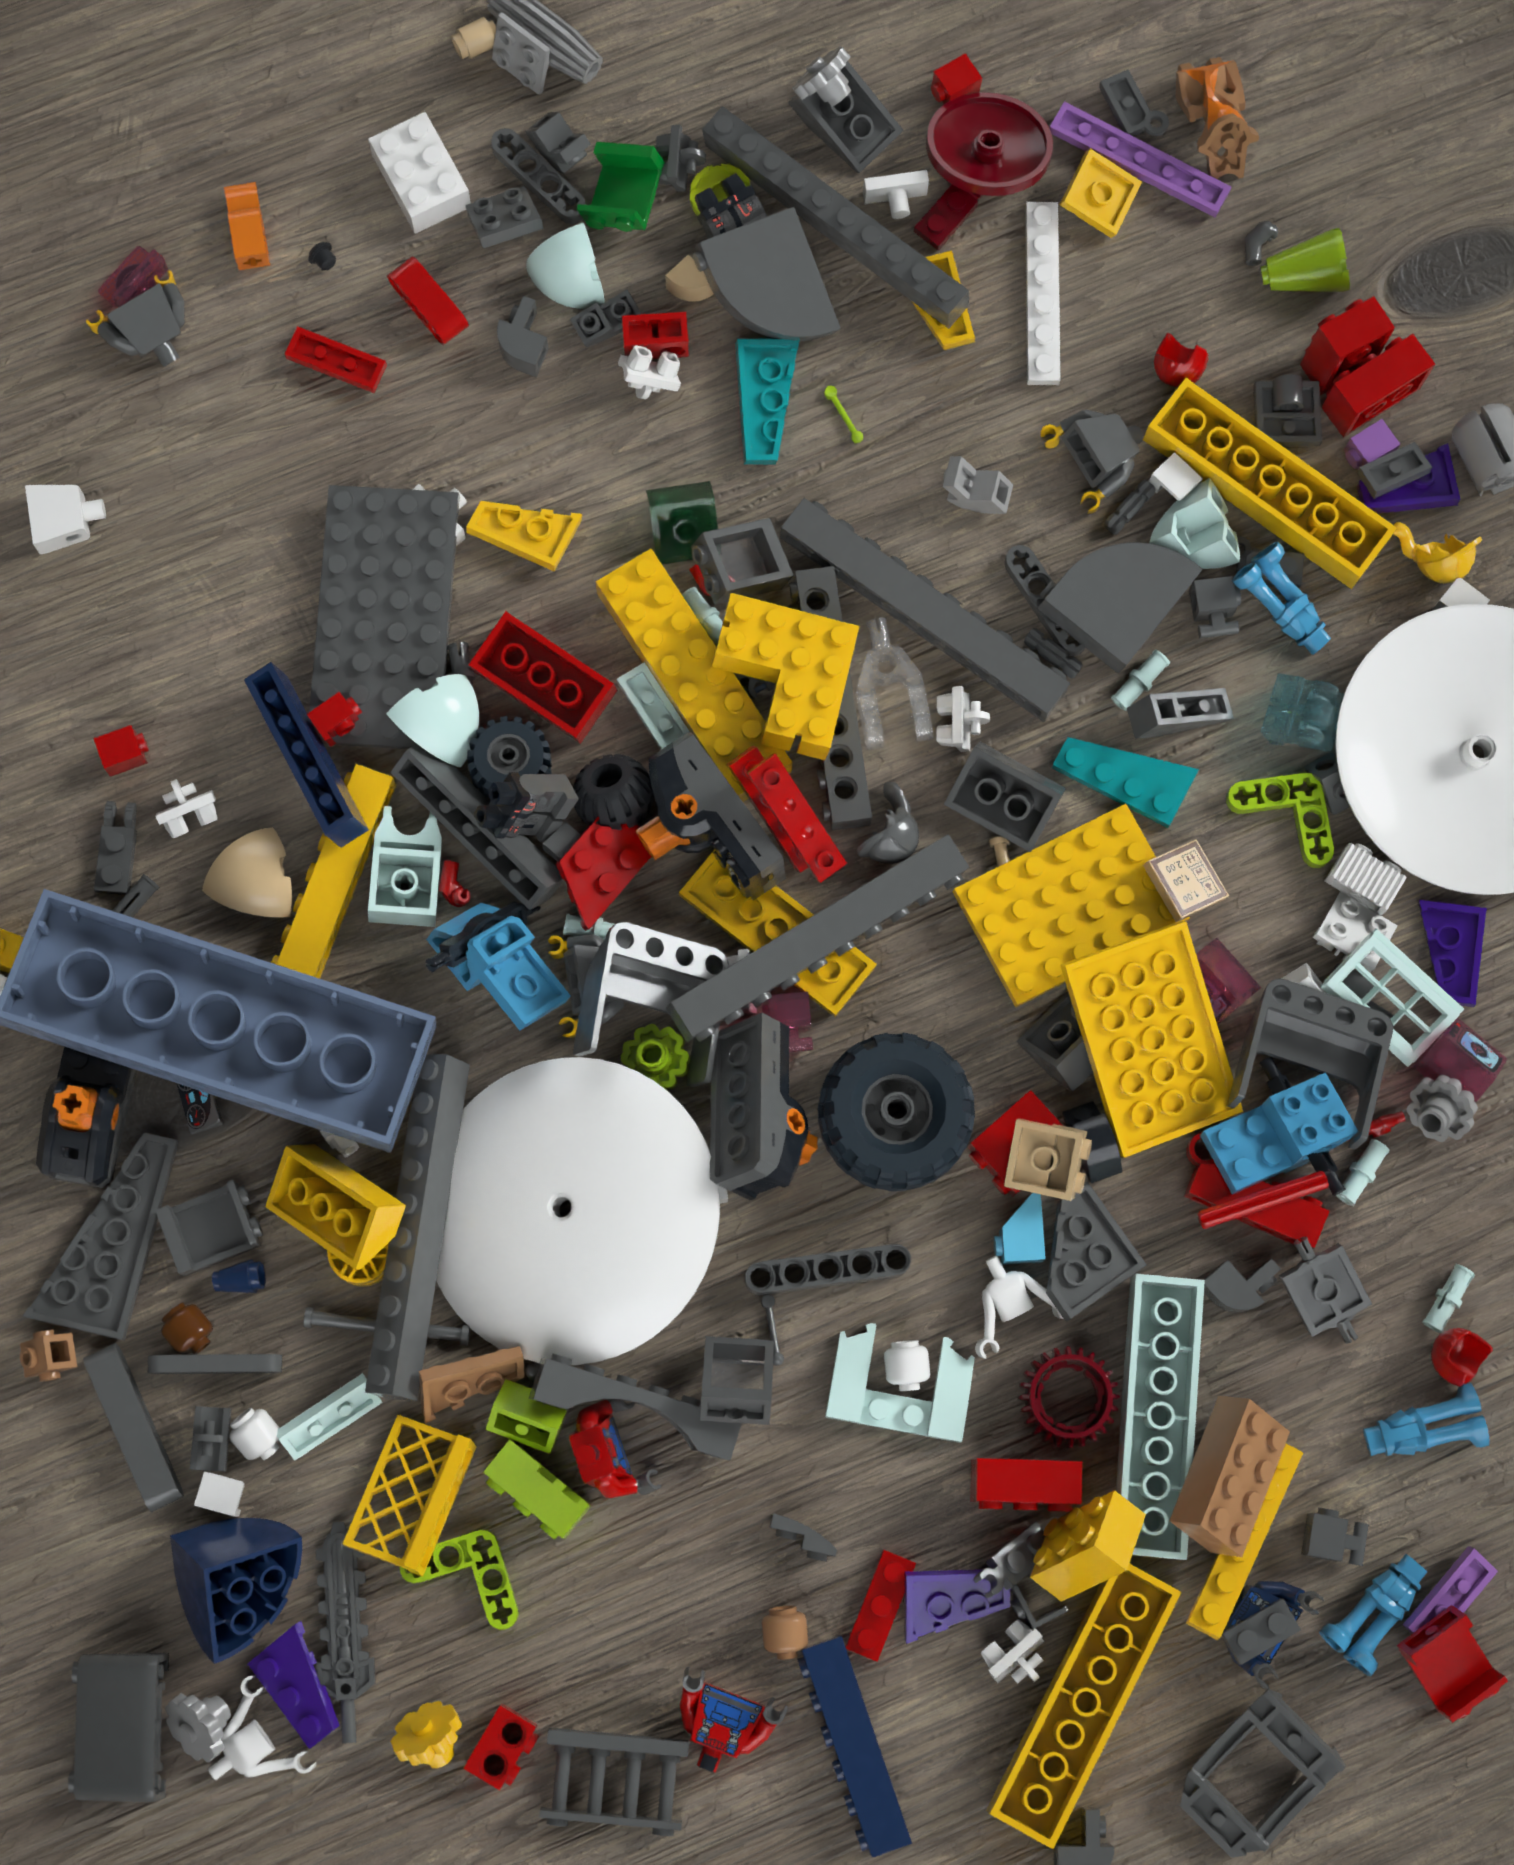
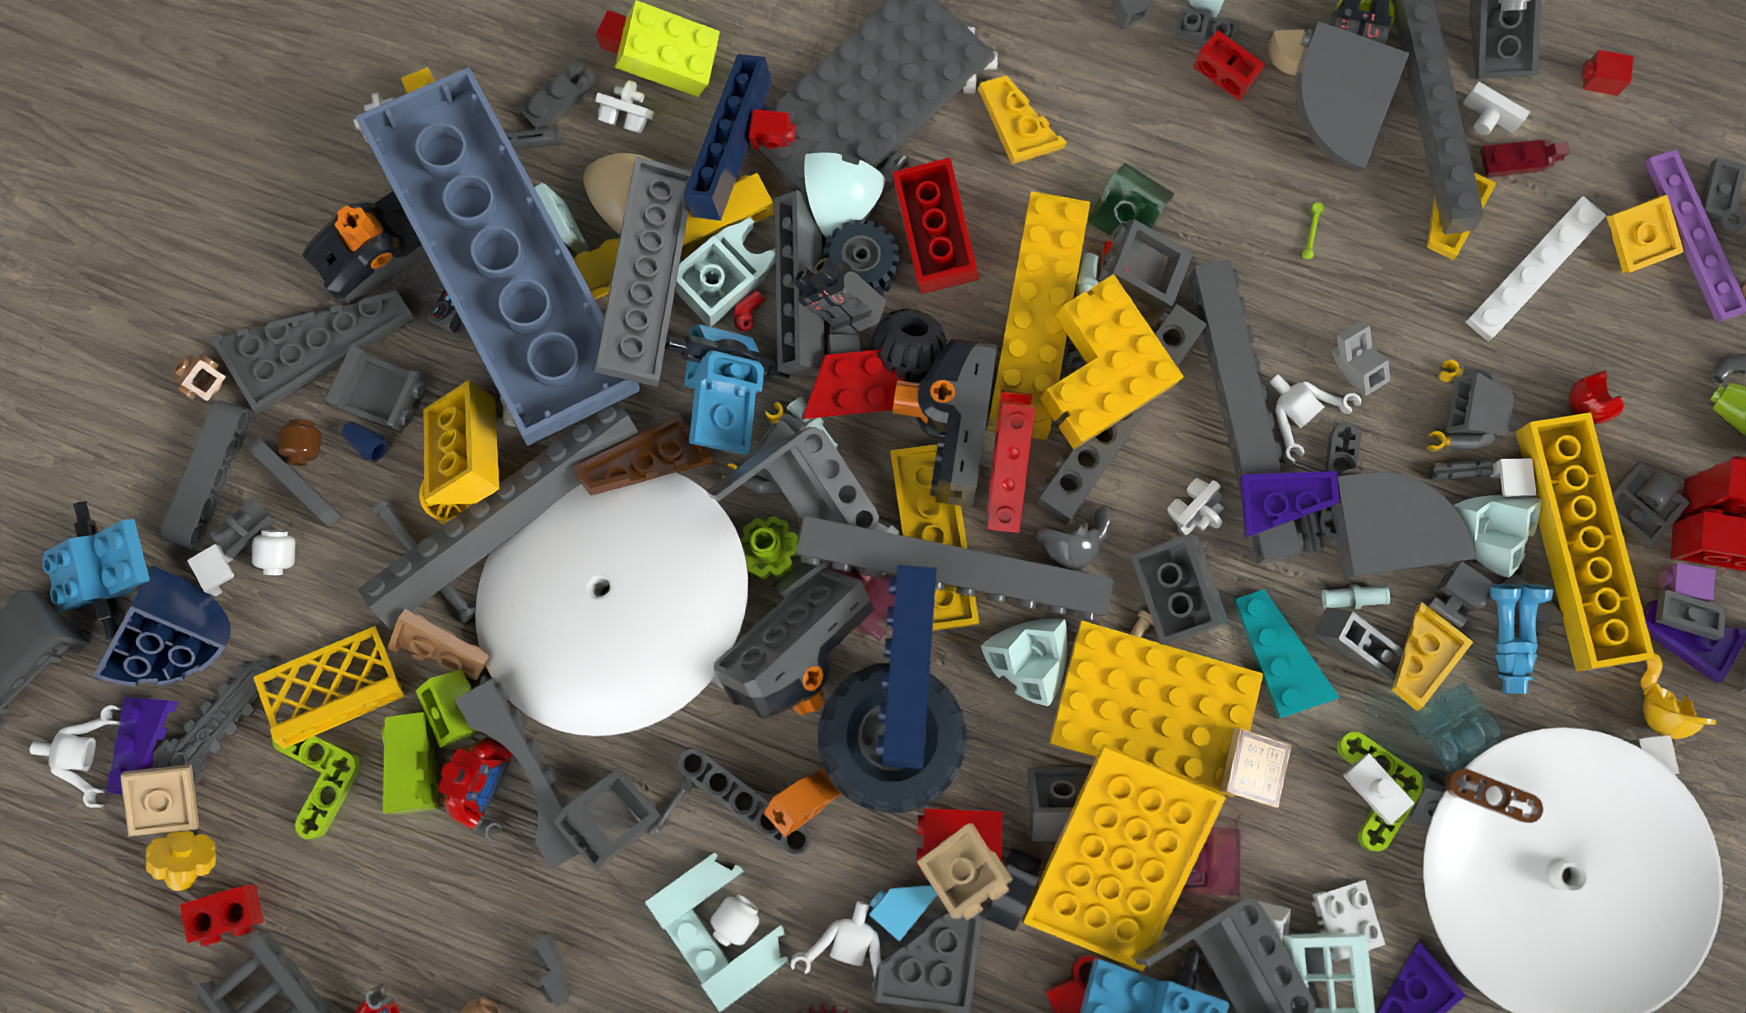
camera: 50 degrees right, 0 degrees up
(126, 1578) = (96, 567): none -> dark azure piece
(179, 727) = (667, 49): none -> neon yellow brick
(198, 1724) = (54, 707): light grey plant -> none
(231, 944) = (562, 219): none -> light aqua tile
(327, 1417) = (323, 583): light aqua plate -> none
(352, 924) = (644, 274): none -> dark grey plate
(363, 1709) = (159, 800): none -> tan tile
(489, 1076) = (643, 457): none -> reddish brown wing
(650, 375) = (1199, 88): white hips -> none
(652, 705) = (993, 310): light aqua plate -> none
(764, 386) = (1272, 165): teal wing -> none
(863, 1041) = (909, 667): none -> dark blue brick
(873, 1225) = (801, 802): none -> orange piece
(903, 672) = (1188, 440): clear piece -> none
(940, 954) = (1030, 657): none -> light aqua brick
(965, 566) = (1301, 406): none -> white piece
(989, 144) = (1593, 132): dark red dish -> none
(1018, 652) = (1284, 497): none -> dark purple wing
(1235, 677) = (1428, 656): none -> yellow wing
(1288, 812) = (1378, 789): none -> white tile
(1366, 878) = (1393, 889): white brick -> none
(1392, 722) = (1518, 795): none -> reddish brown beam

